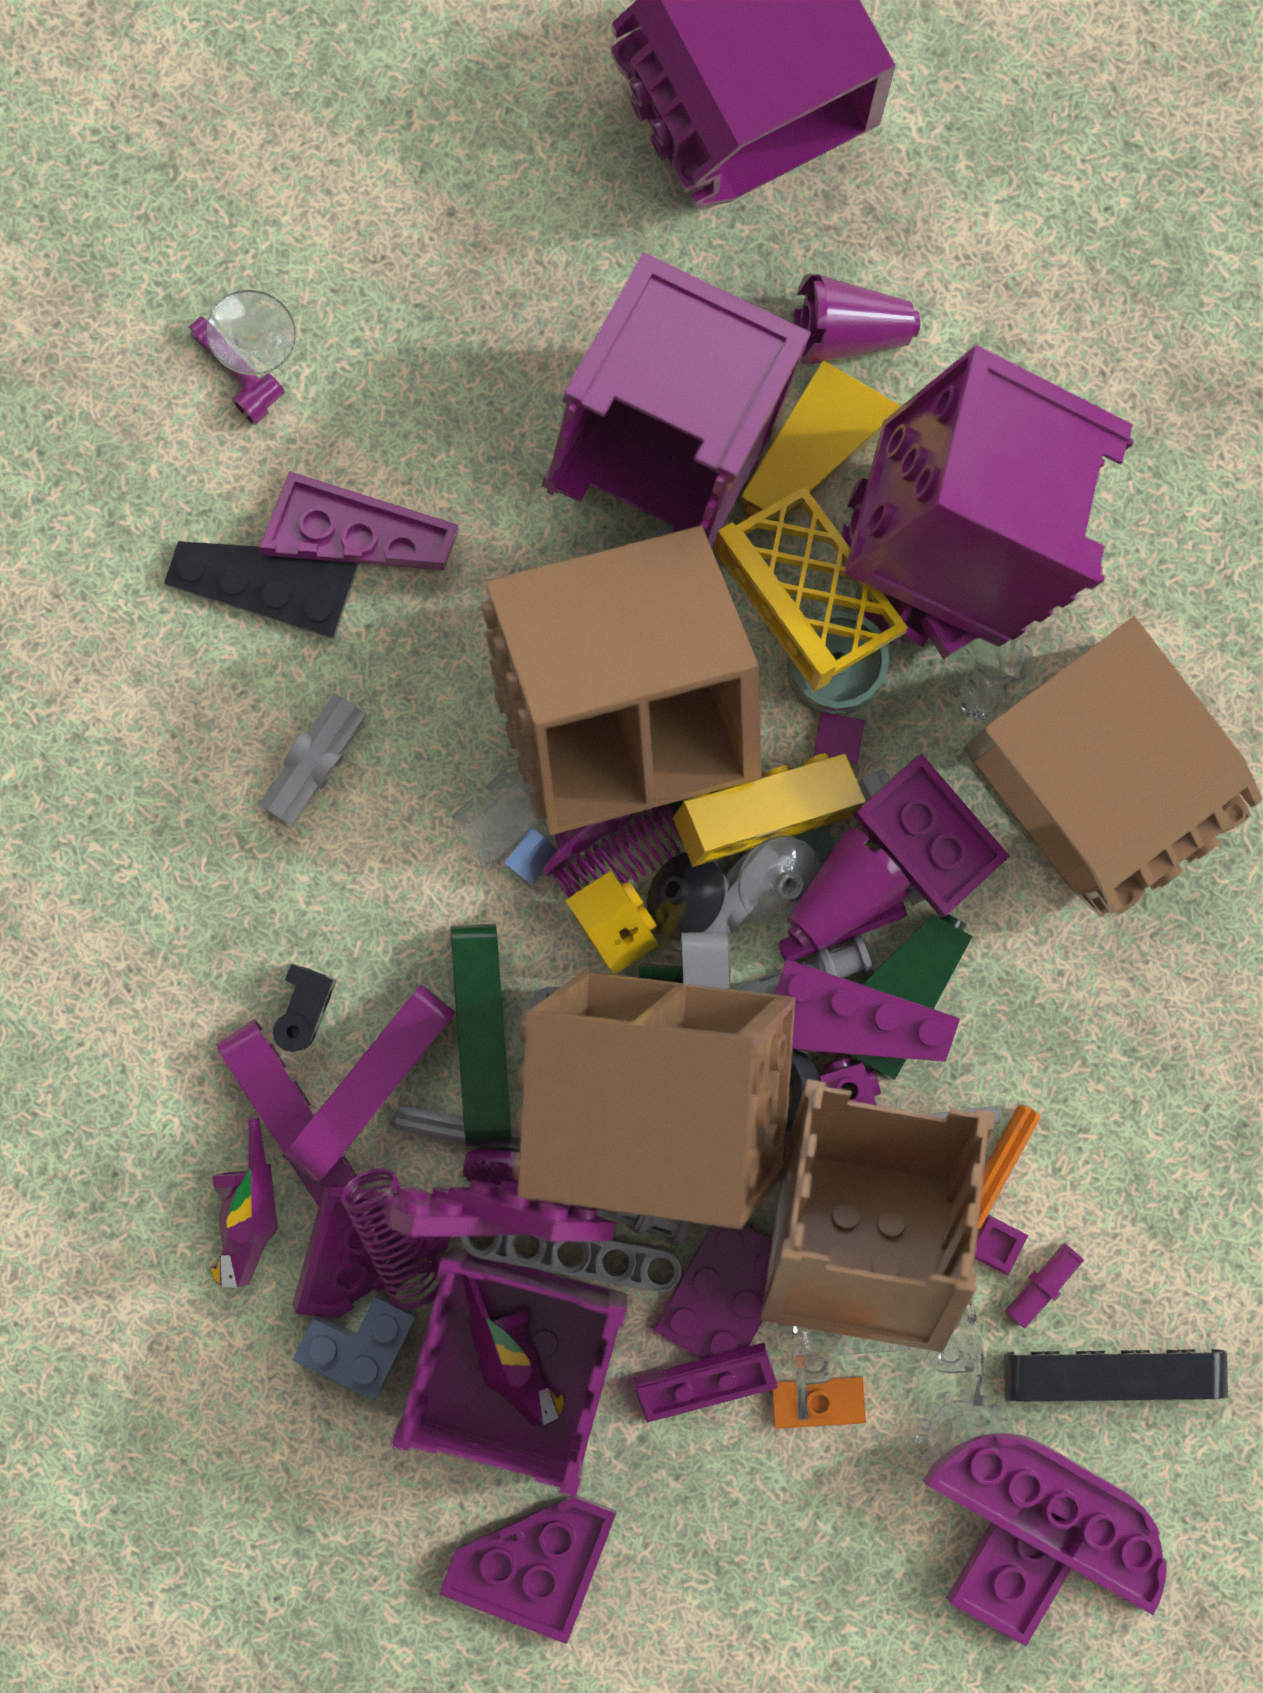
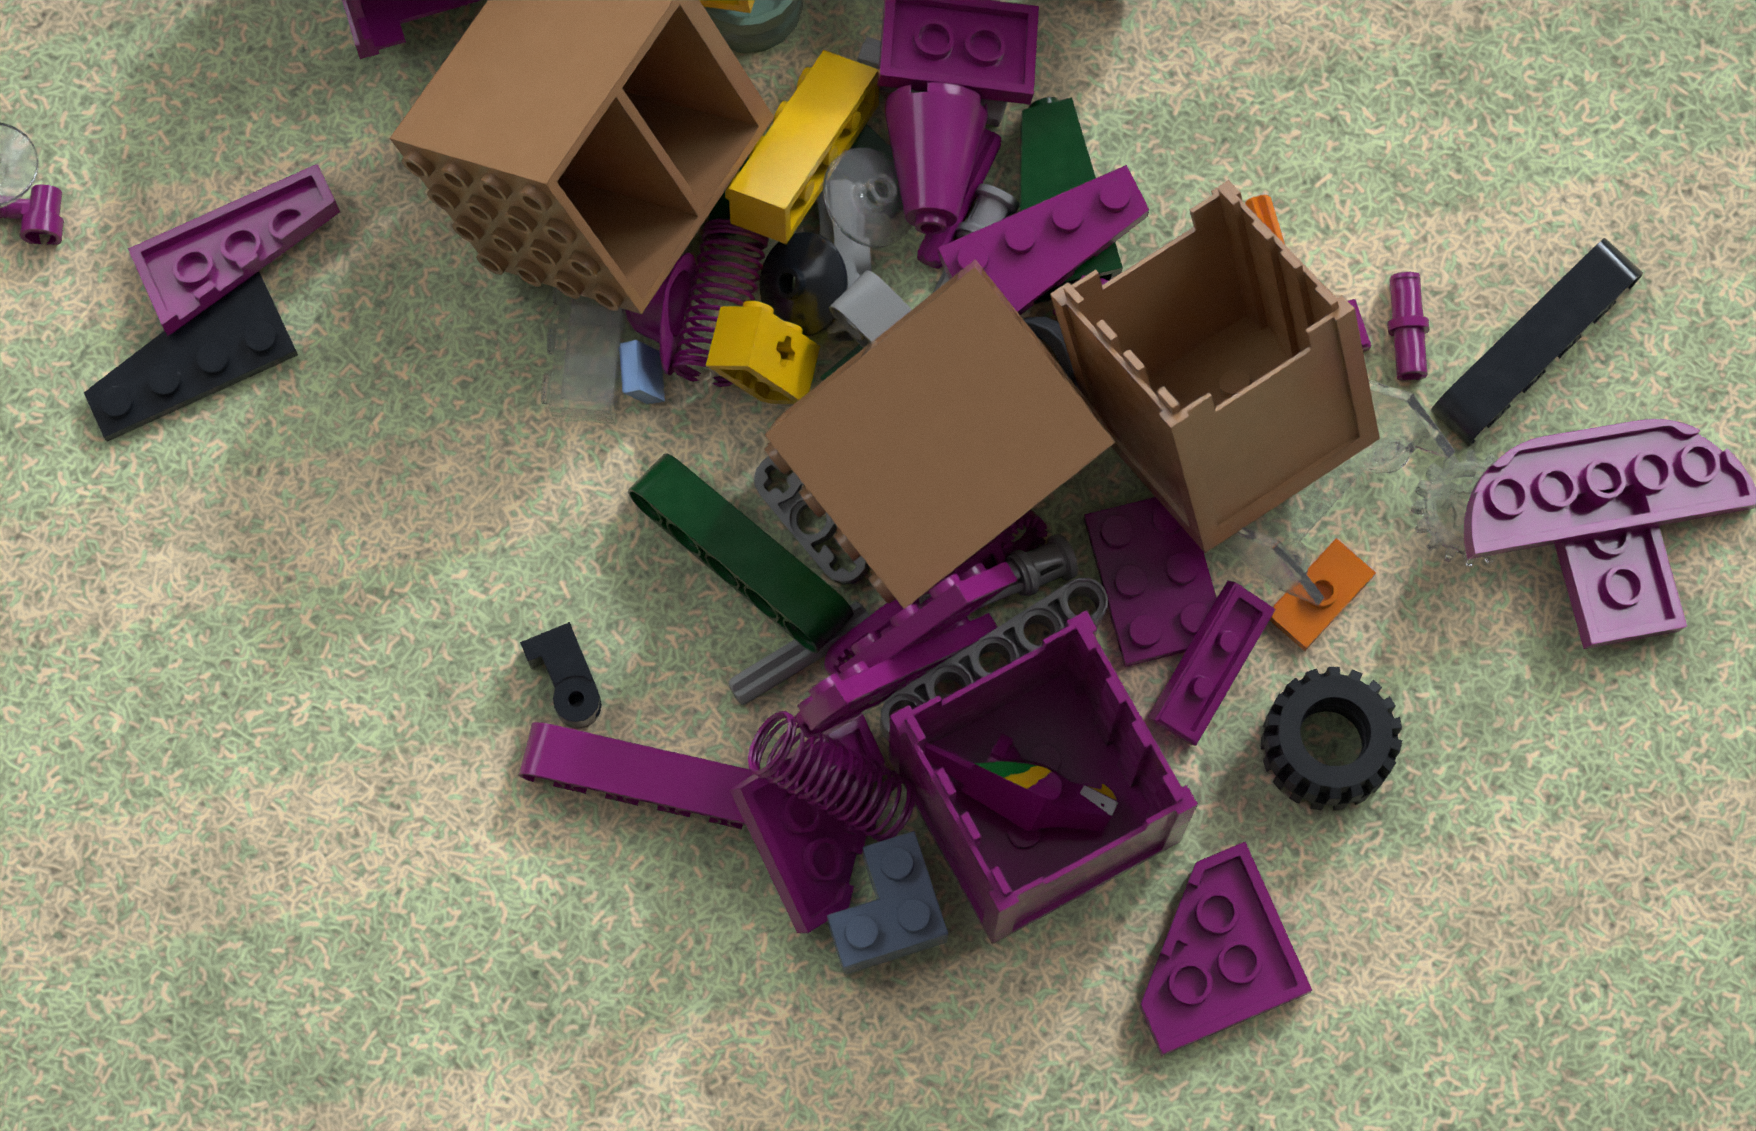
camera: 45 degrees left, 10 degrees down
(246, 1214) = (684, 896): magenta animal -> none
(312, 759) = (375, 464): light grey piece -> none
(368, 1084) = (685, 678): magenta beam -> none
(739, 1542) = (1321, 782): none -> black tyre
(839, 736) = (802, 47): magenta tile -> none

